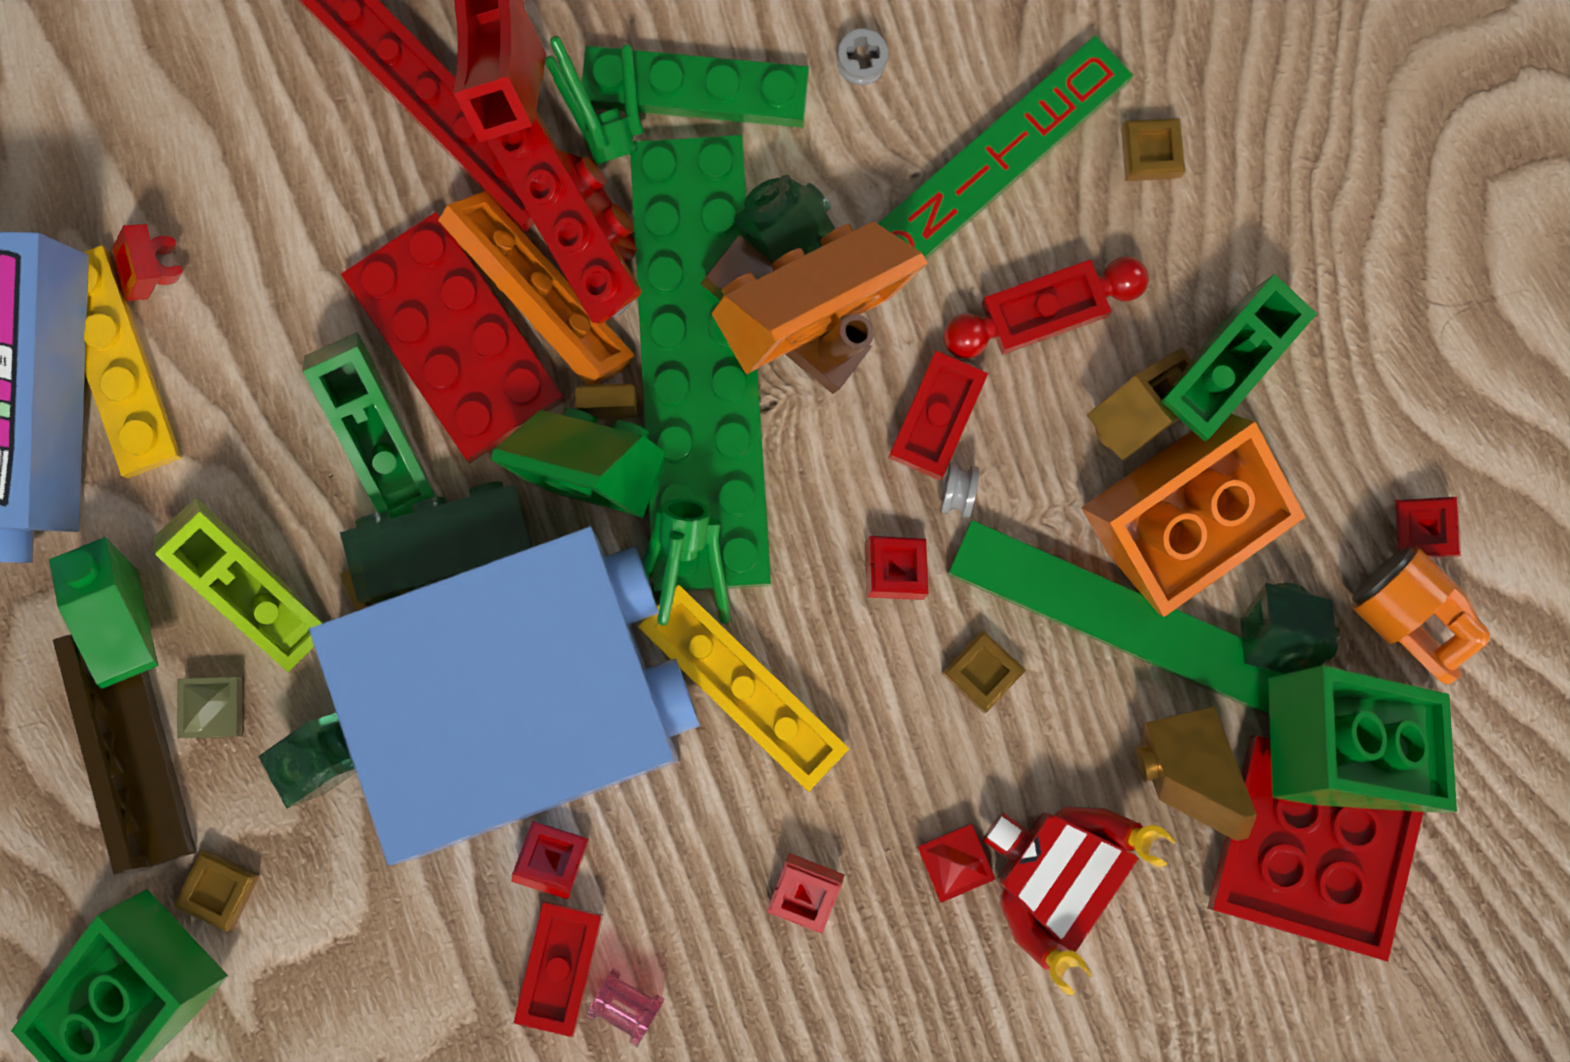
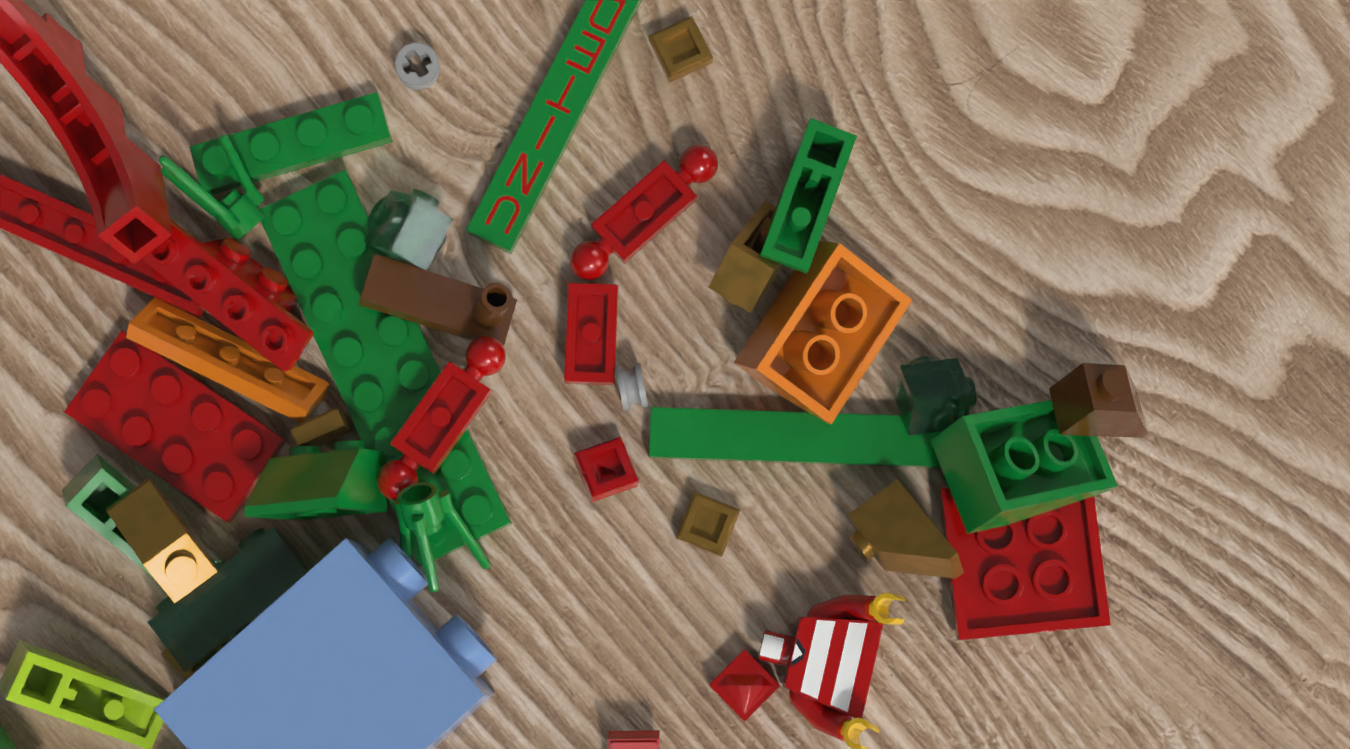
camera: 15 degrees left, 0 degrees up
(389, 451) = (162, 540): none -> pearl gold slope
(744, 438) = (442, 416): none -> red plate
(746, 690) = (523, 616): yellow plate -> none
(813, 292) = (450, 278): orange slope -> none
(1405, 595) = (1013, 330): orange piece -> none
(1429, 525) = (1014, 268): red tile -> none
(1471, 710) = (1098, 402): none -> reddish brown slope

